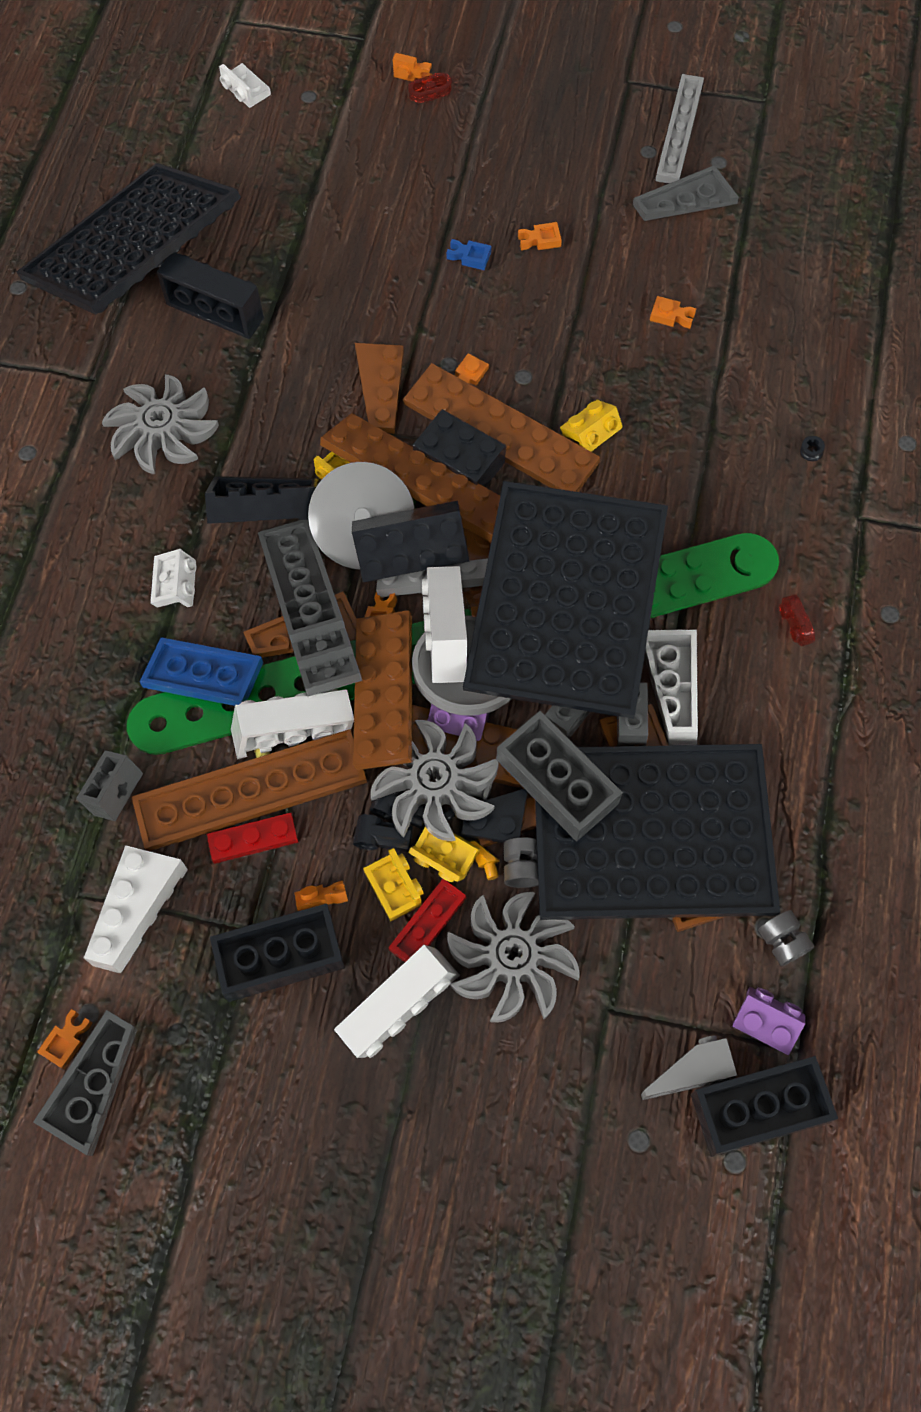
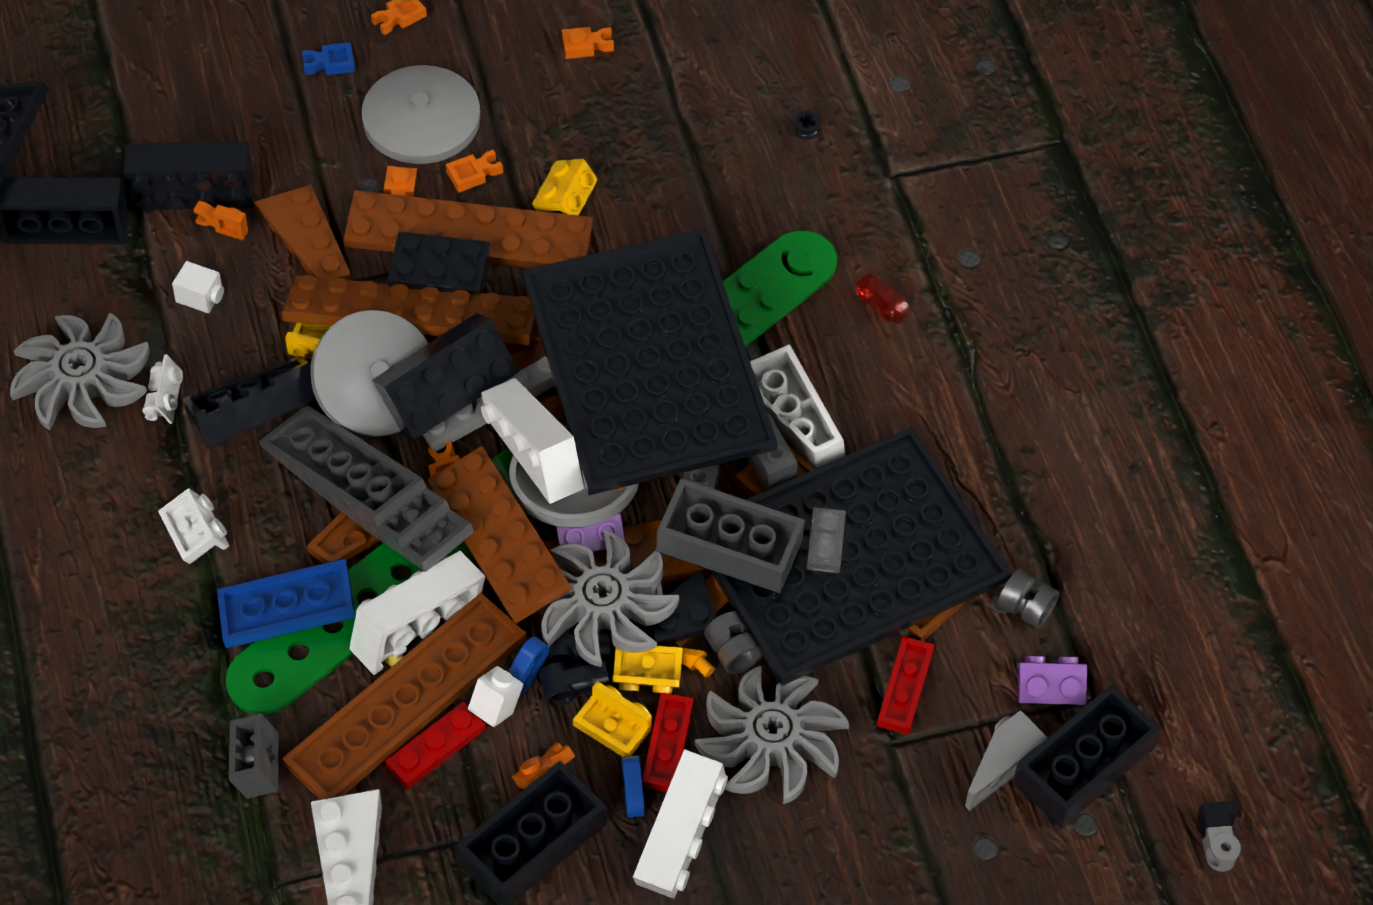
camera: 30 degrees left, 10 degrees down
(213, 463) = (166, 380): none -> white hinge
(277, 392) = (198, 287): none -> white brick
(313, 821) = (495, 696): none -> white brick
(315, 303) = (184, 173): none -> black brick
(327, 349) = (225, 220): none -> orange plate
(348, 808) = (529, 662): none -> blue beam
(379, 947) = (632, 786): none -> blue beam
(515, 322) = (421, 114): none -> light grey dish
(525, 382) = (471, 172): none -> orange plate
(638, 812) = (826, 540): none -> clear plate
(644, 965) = (905, 685): none -> red plate
(843, 1234) = (1217, 834): none -> leg

